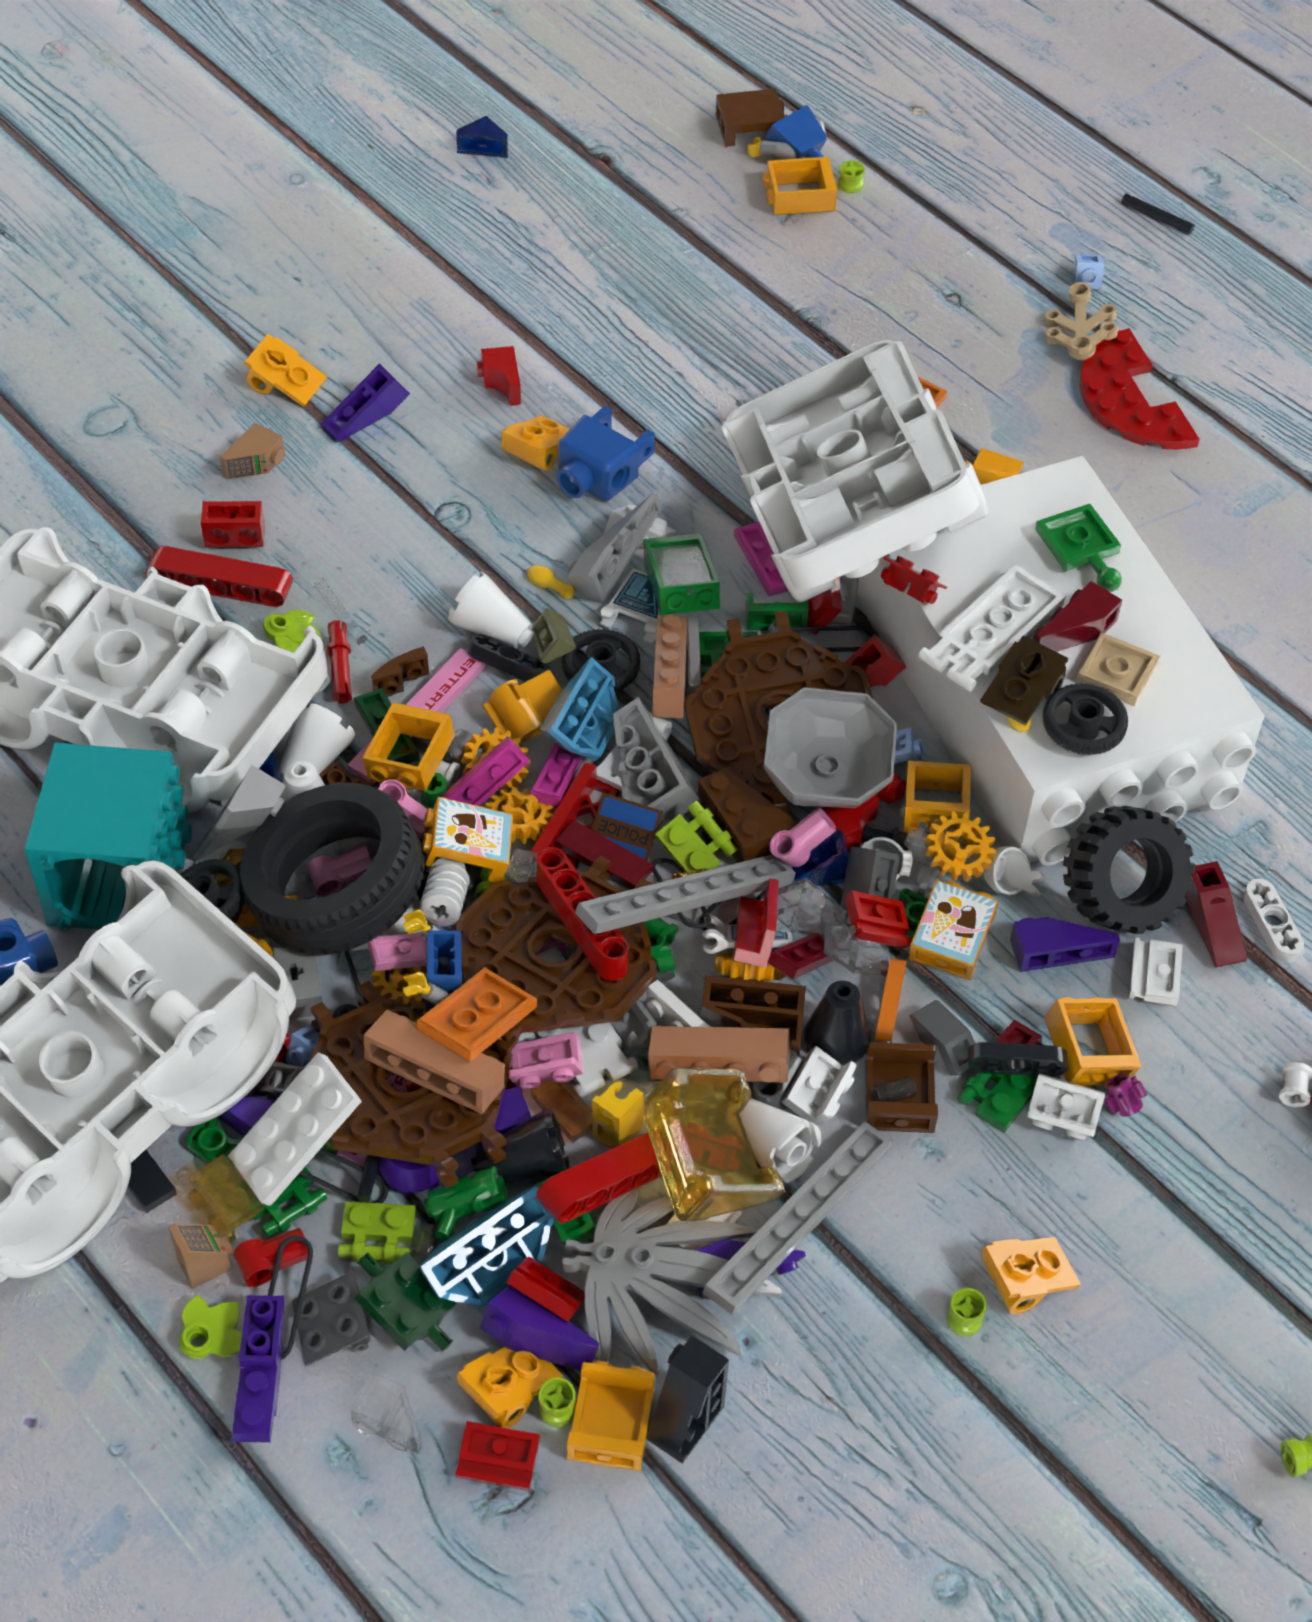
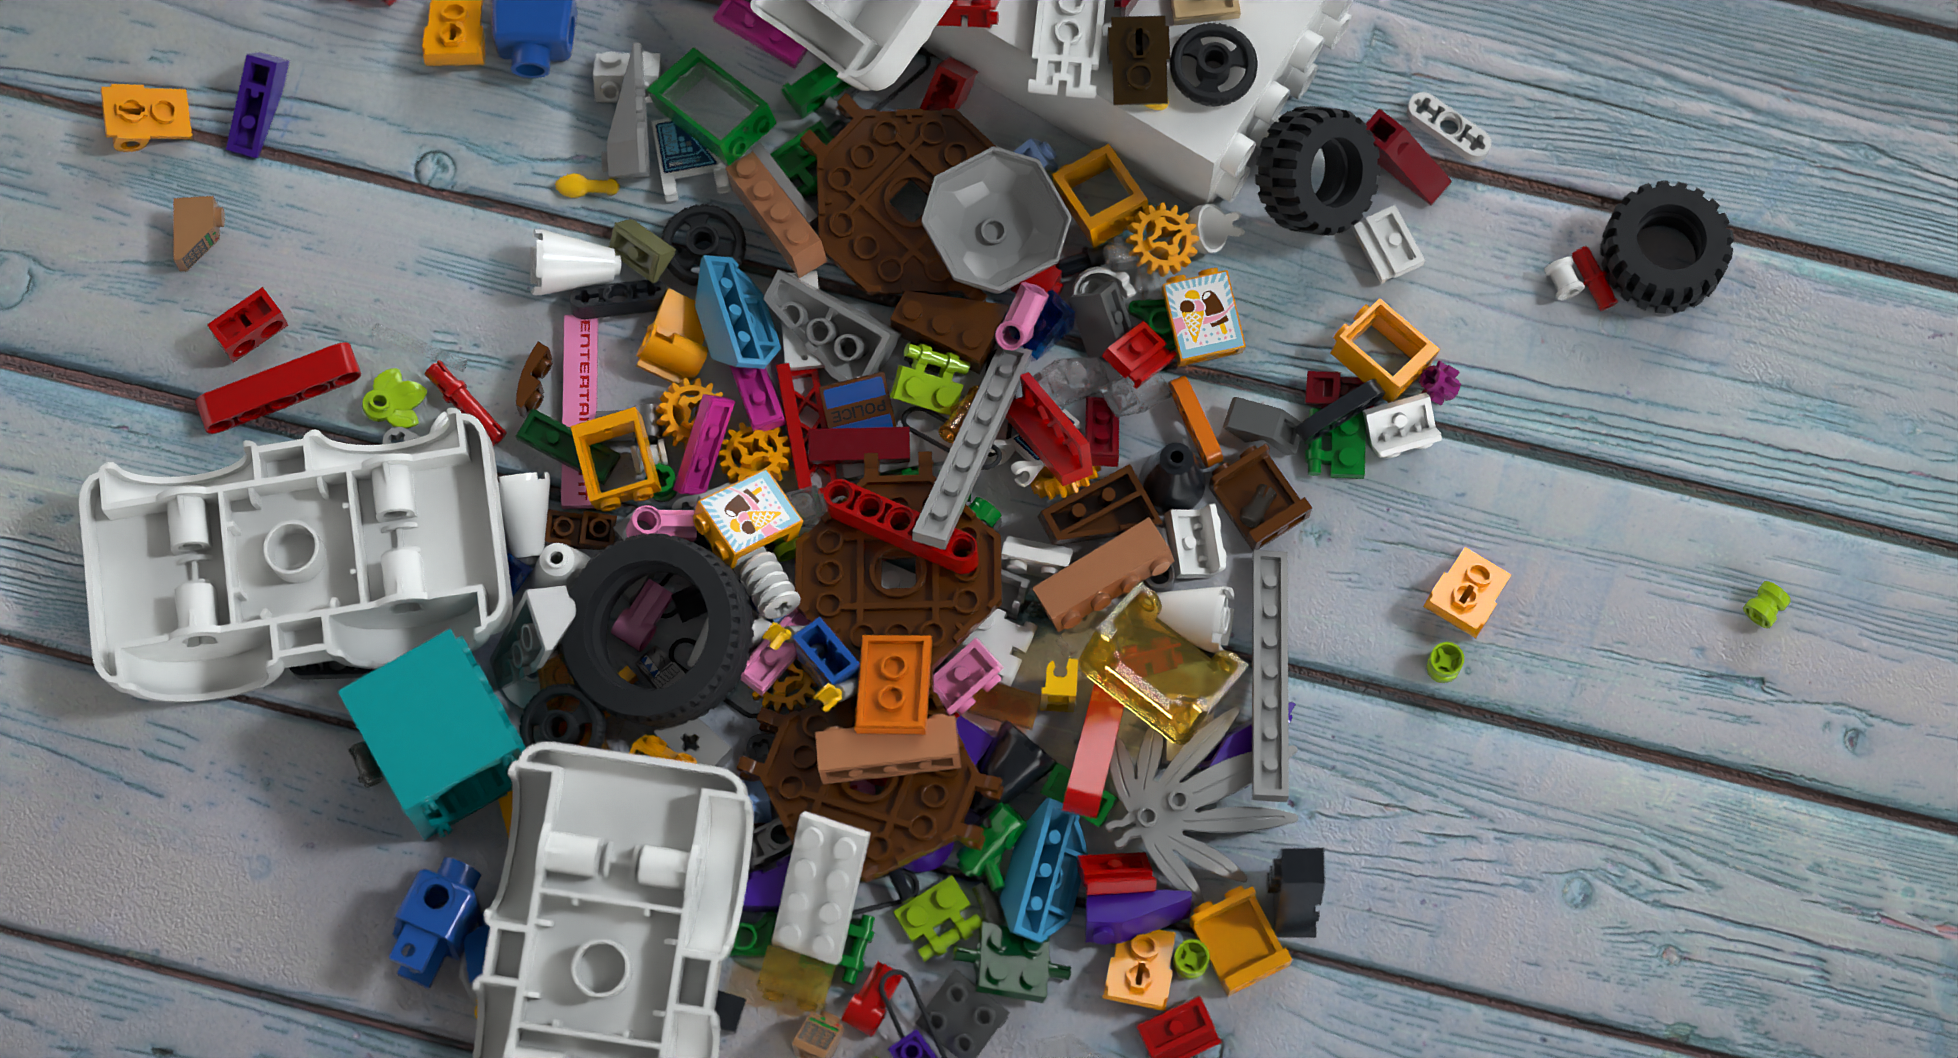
camera: 35 degrees left, 20 degrees up
(1055, 943) = (1290, 273): dark purple slope -> none

